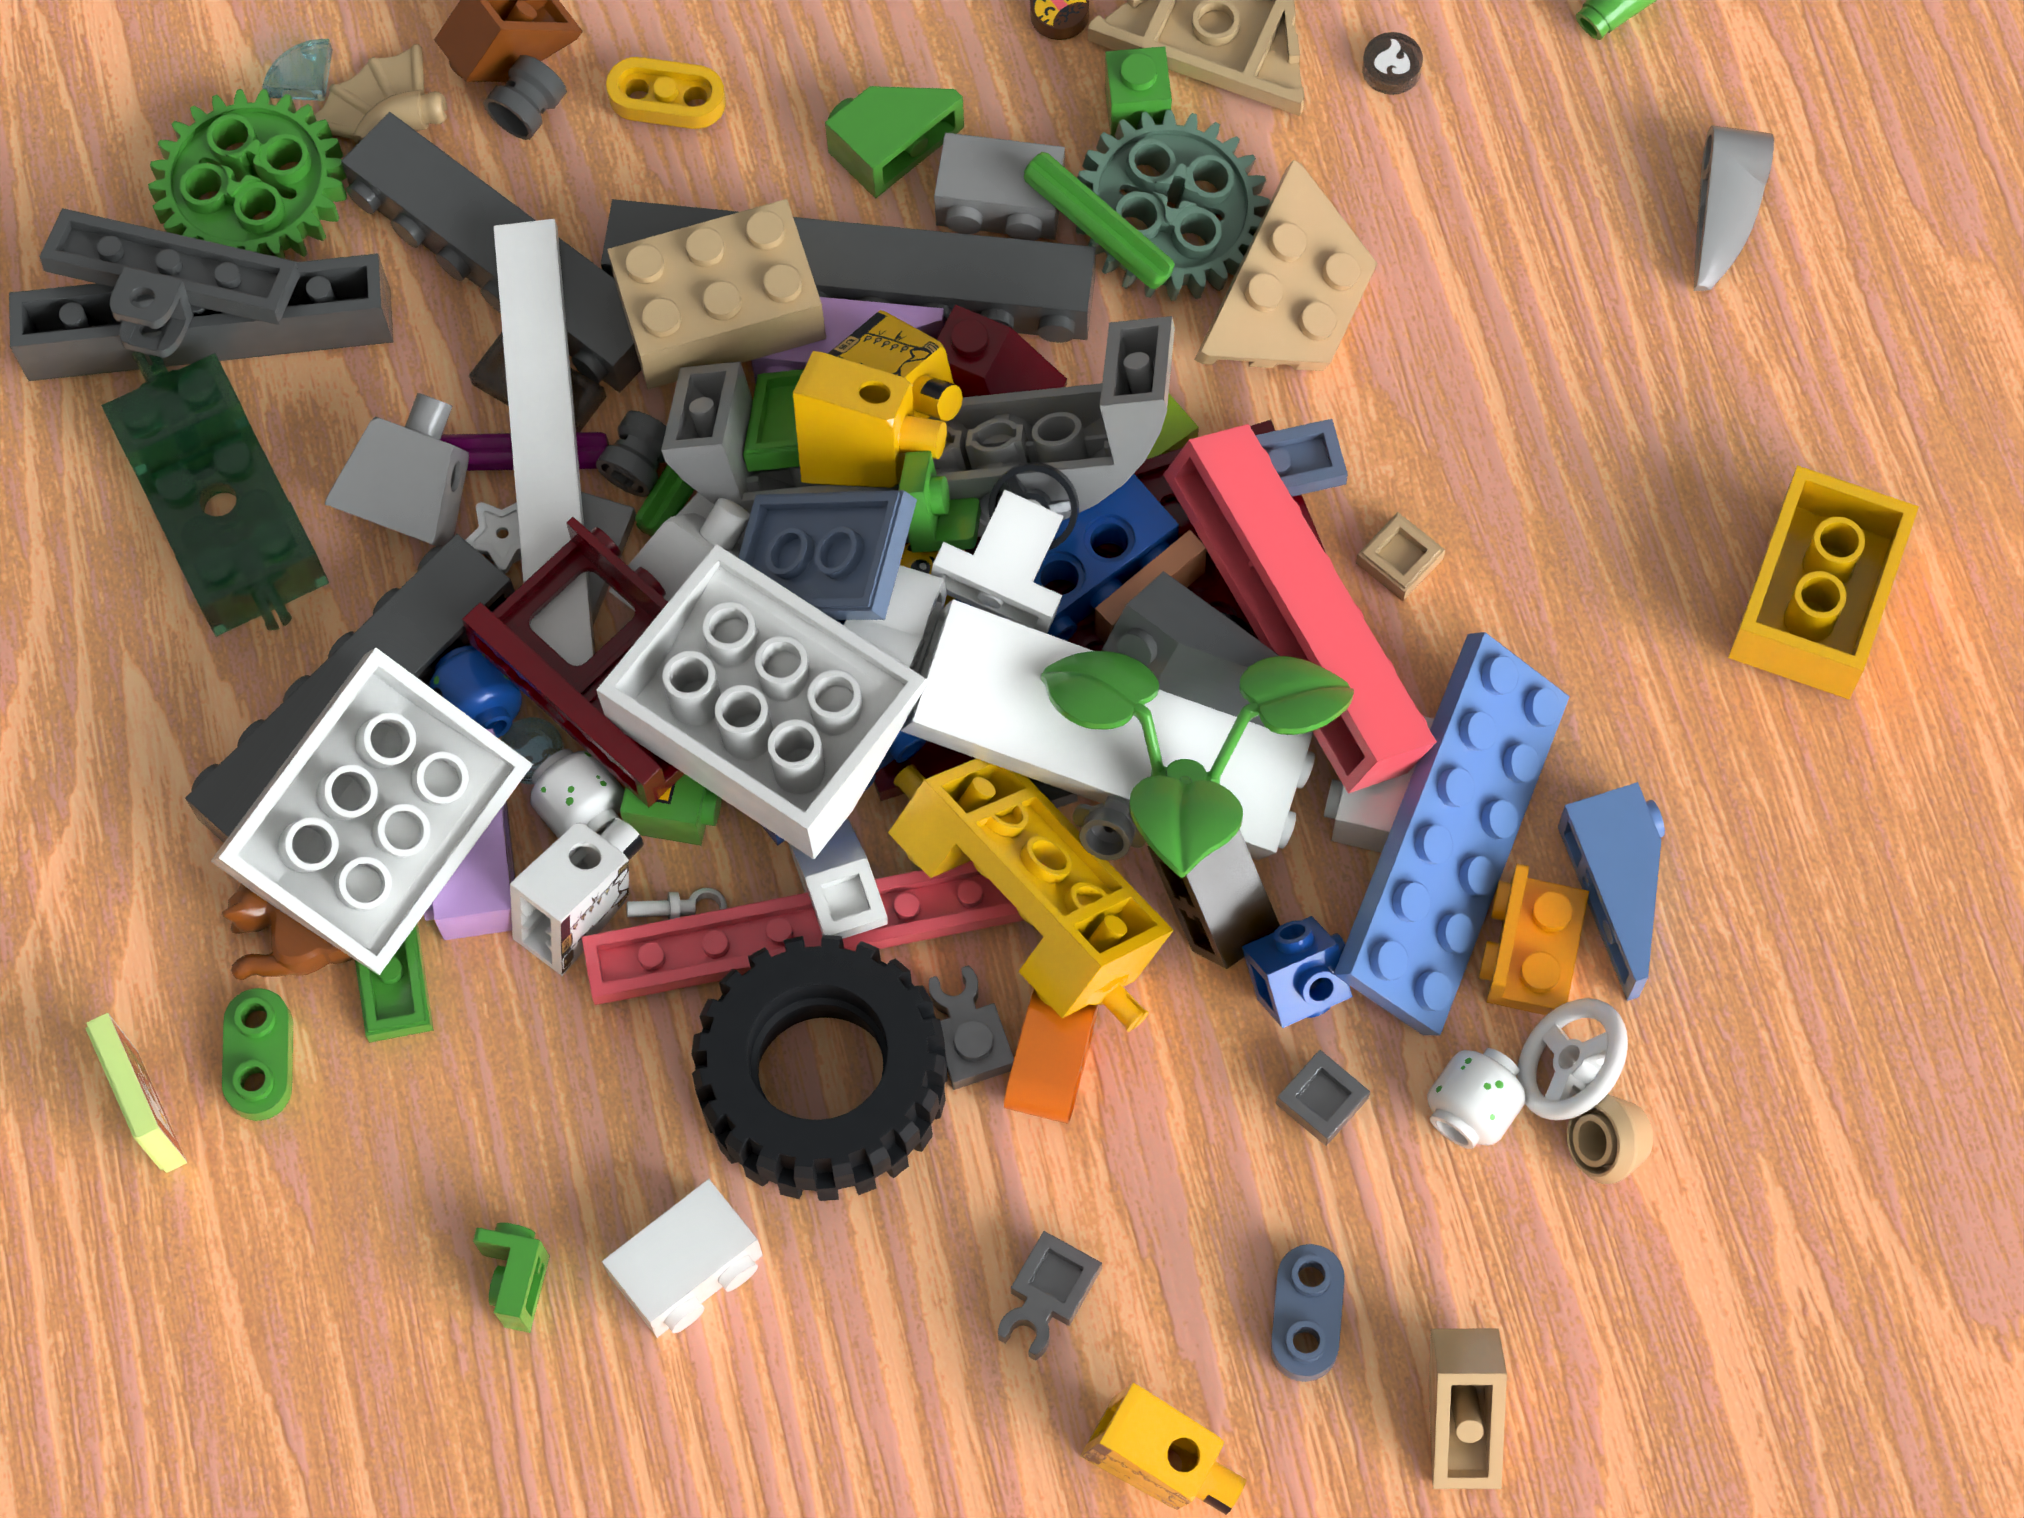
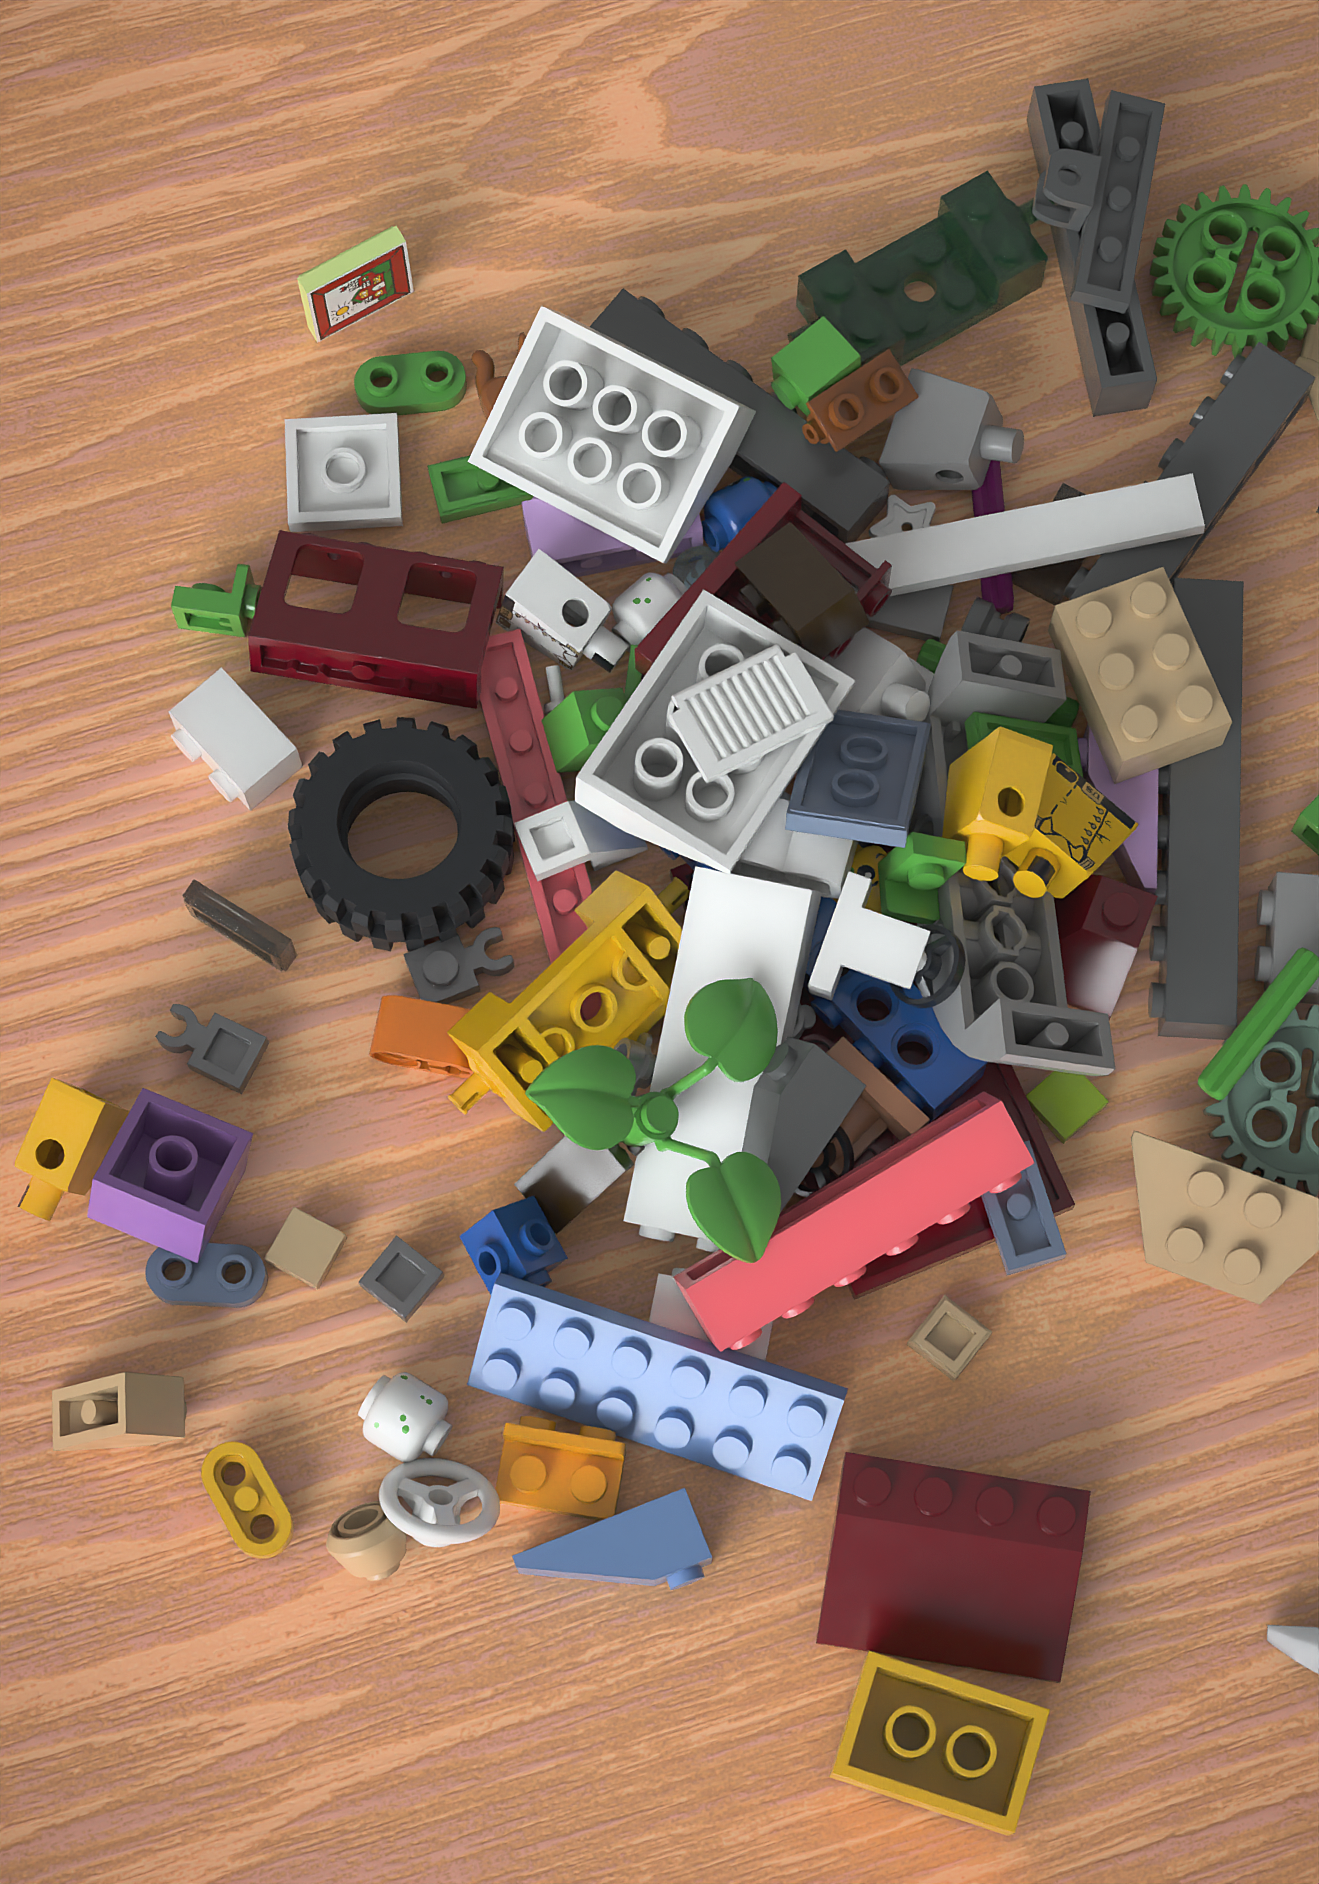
camera: 85 degrees right, 5 degrees up
(320, 591) = (812, 364): none -> bright green slope
(363, 1129) = (343, 472): none -> white plate
(368, 550) = (858, 402): none -> dark orange hinge
(592, 1087) = (368, 643): none -> dark red window
(598, 604) = (800, 592): none -> dark brown brick
(715, 861) = (580, 724): none -> bright green brick
(745, 650) = (747, 711): none -> white window
(908, 1259) = (239, 926): none -> clear smoke tile
(1205, 1331) = (169, 1175): none -> medium lavender brick
(1281, 1202) = (305, 1248): none -> tan tile
(1561, 1271) = (248, 1501): none -> yellow plate
(1639, 565) = (953, 1567): none -> dark red slope

